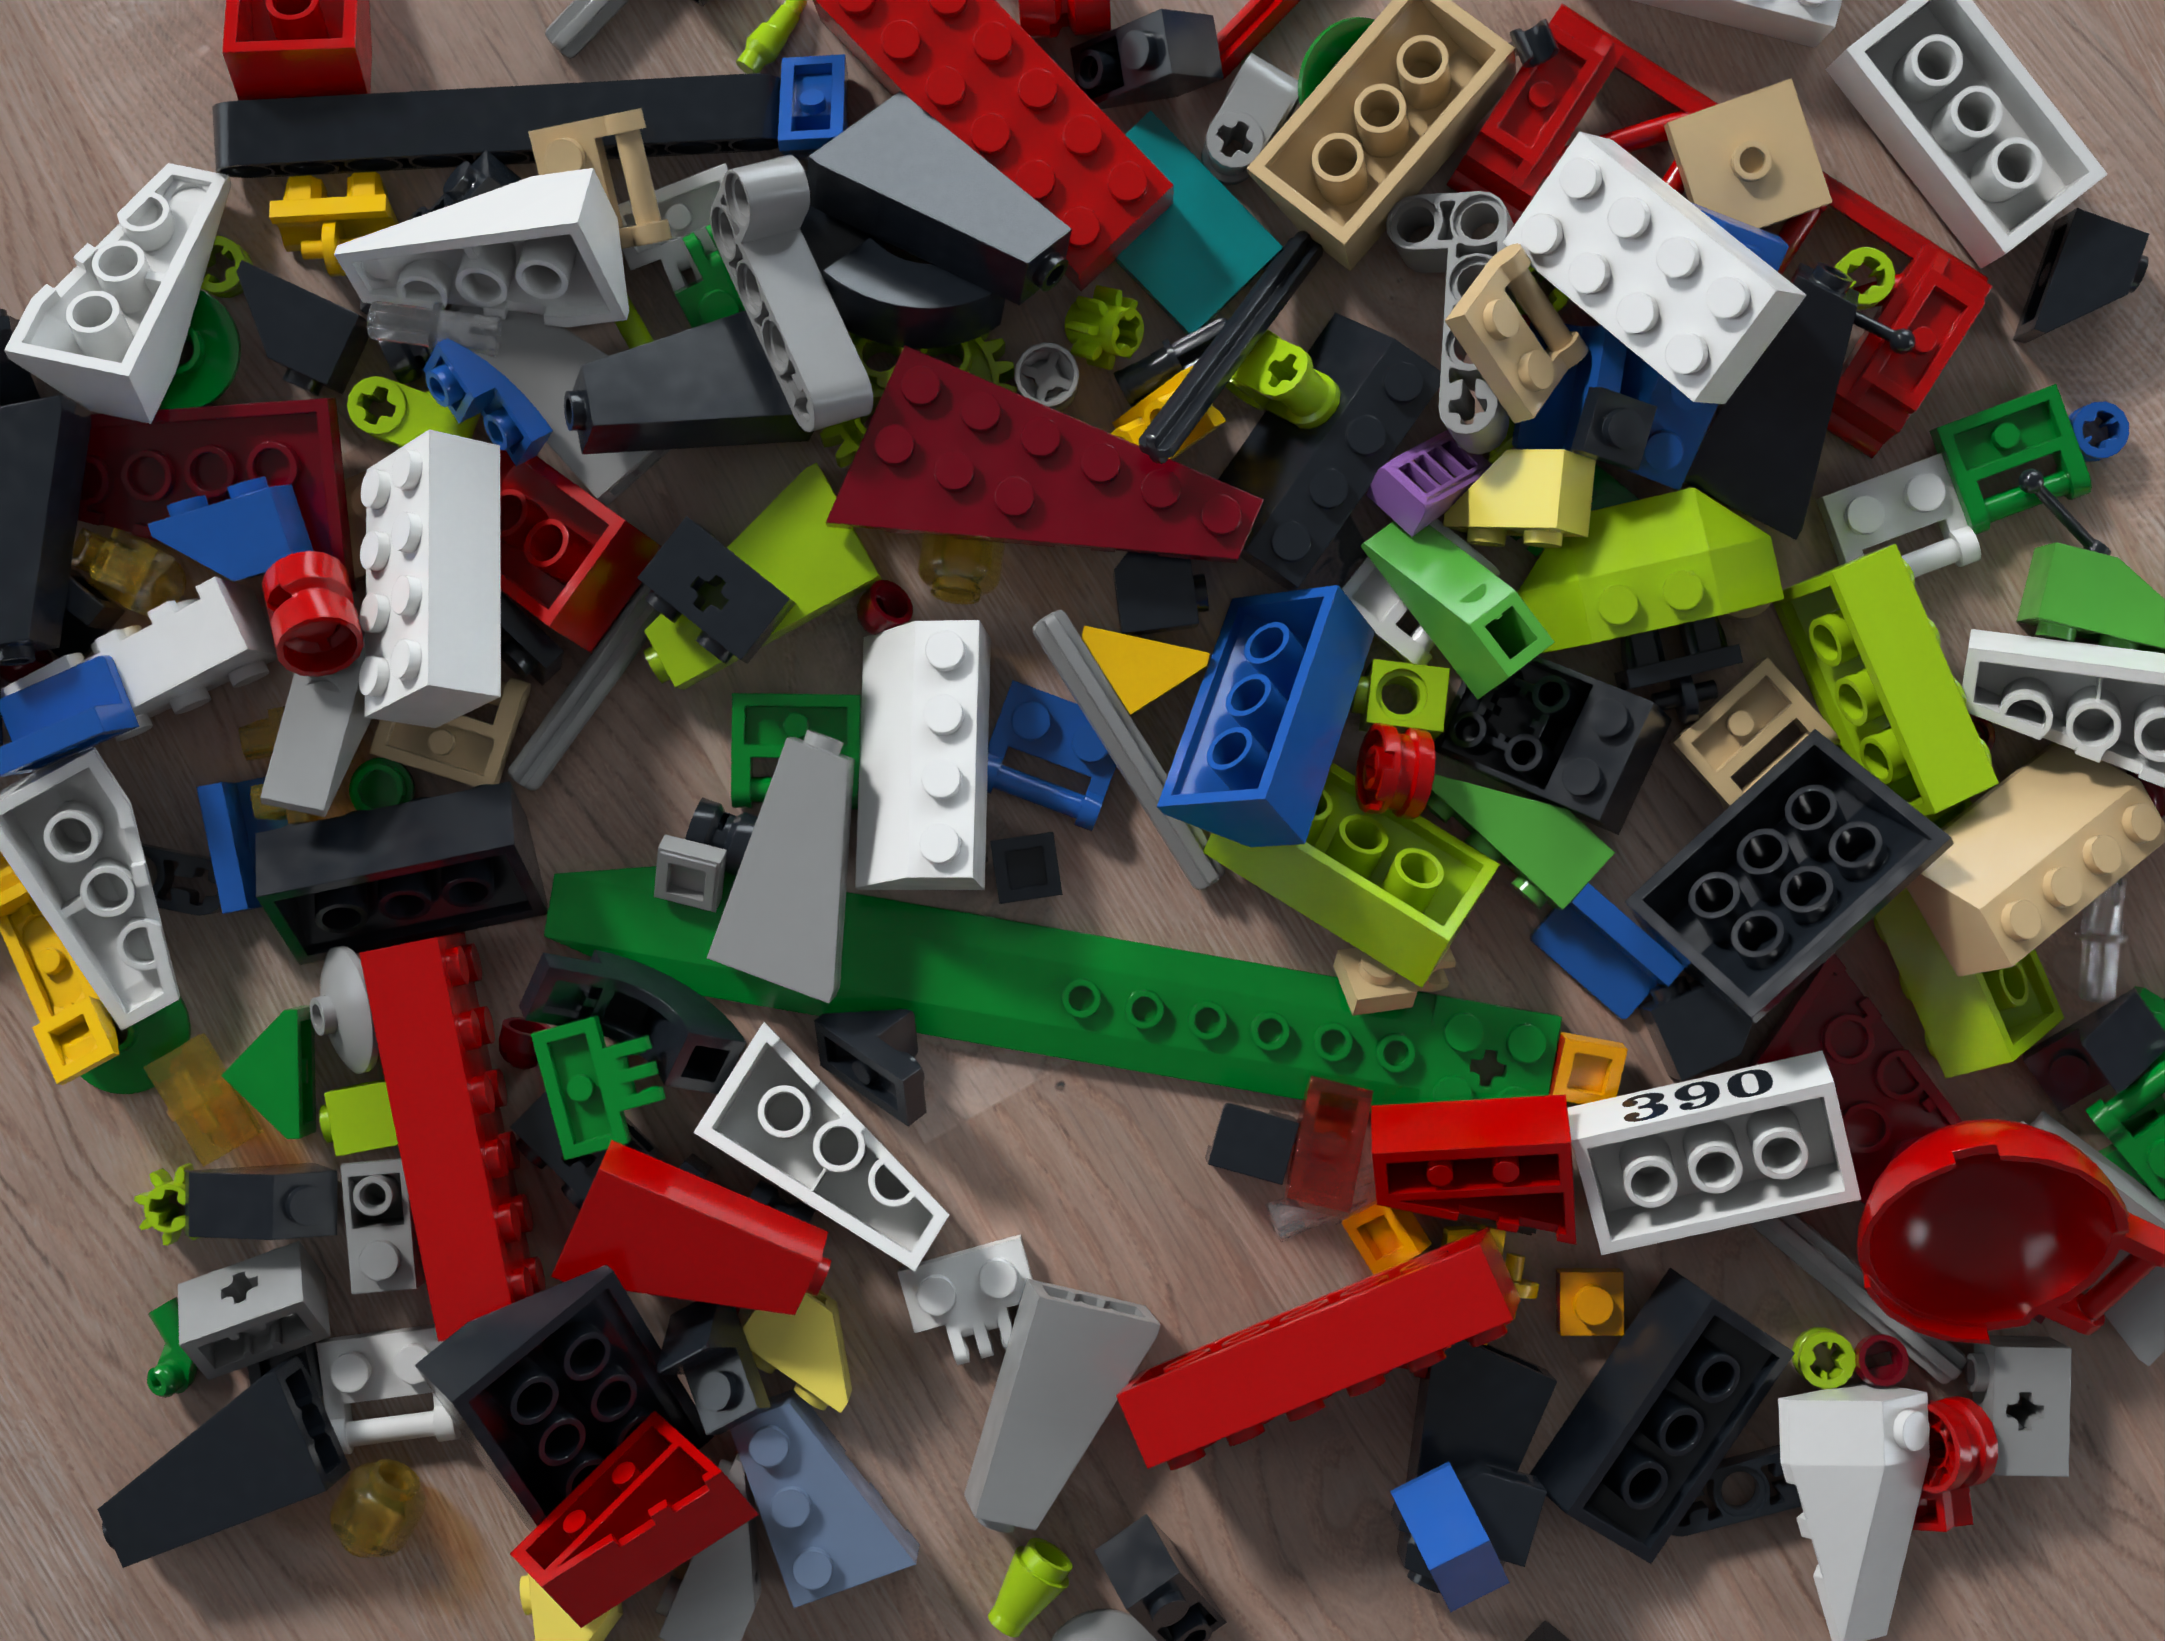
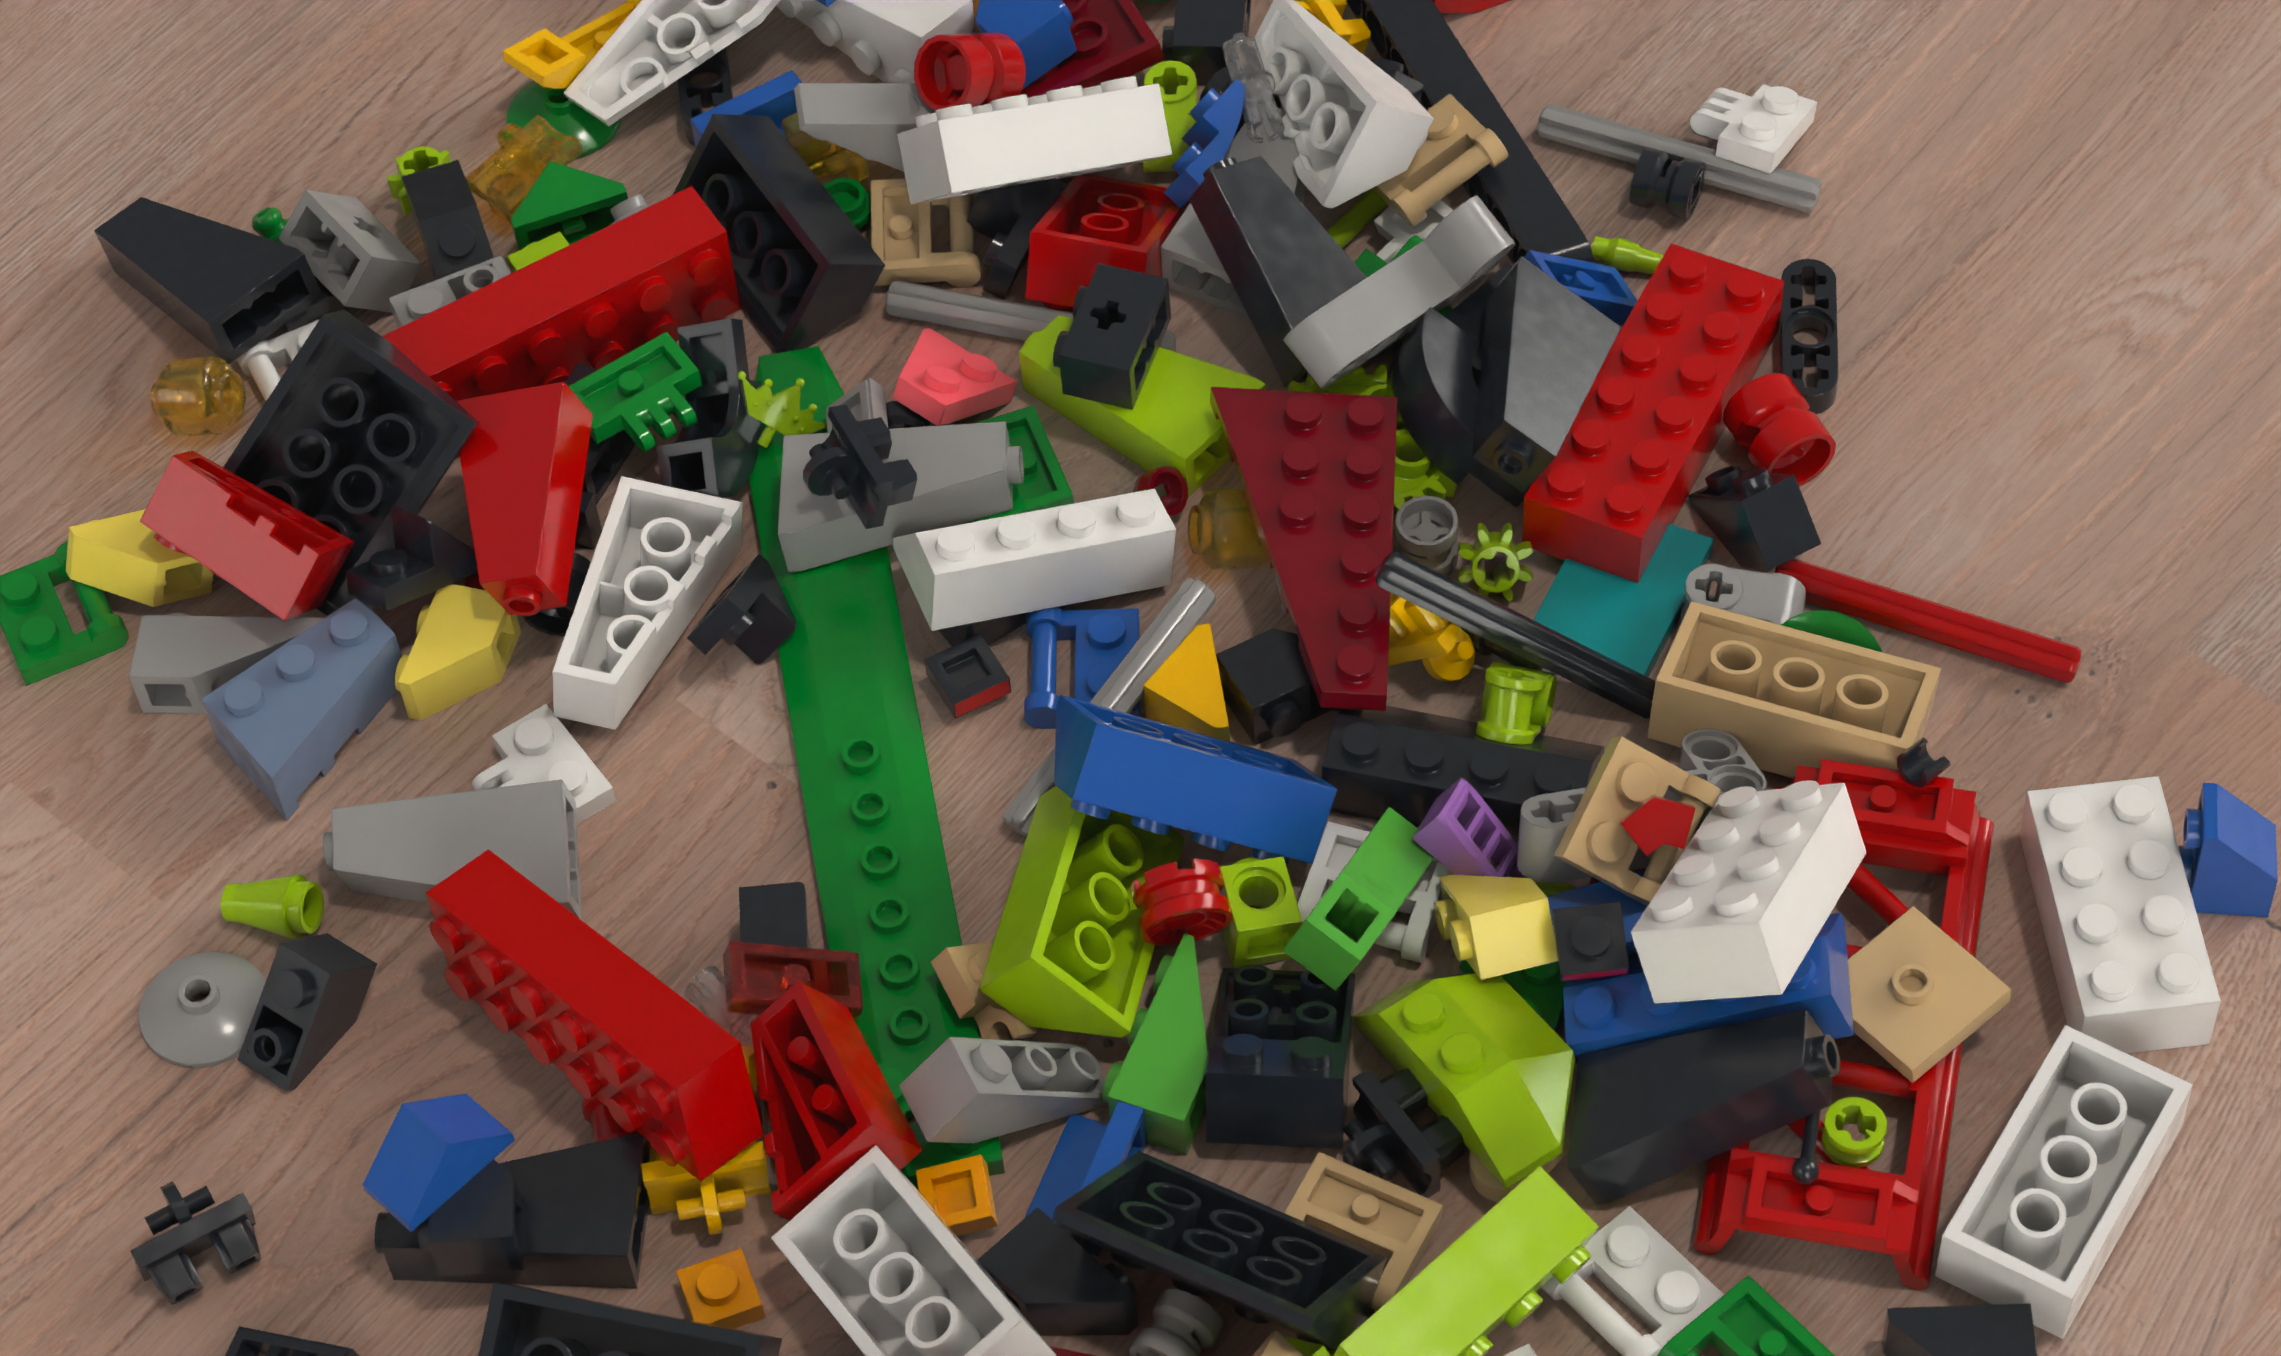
camera: 75 degrees right, 35 degrees down
(652, 946) = (779, 411): none -> lime piece
(667, 766) = (950, 382): none -> coral wing
(801, 913) = (853, 468): none -> black hips
(1518, 998) = (1000, 1086): none -> light grey slope
(1553, 318) = (1659, 823): none -> red piece

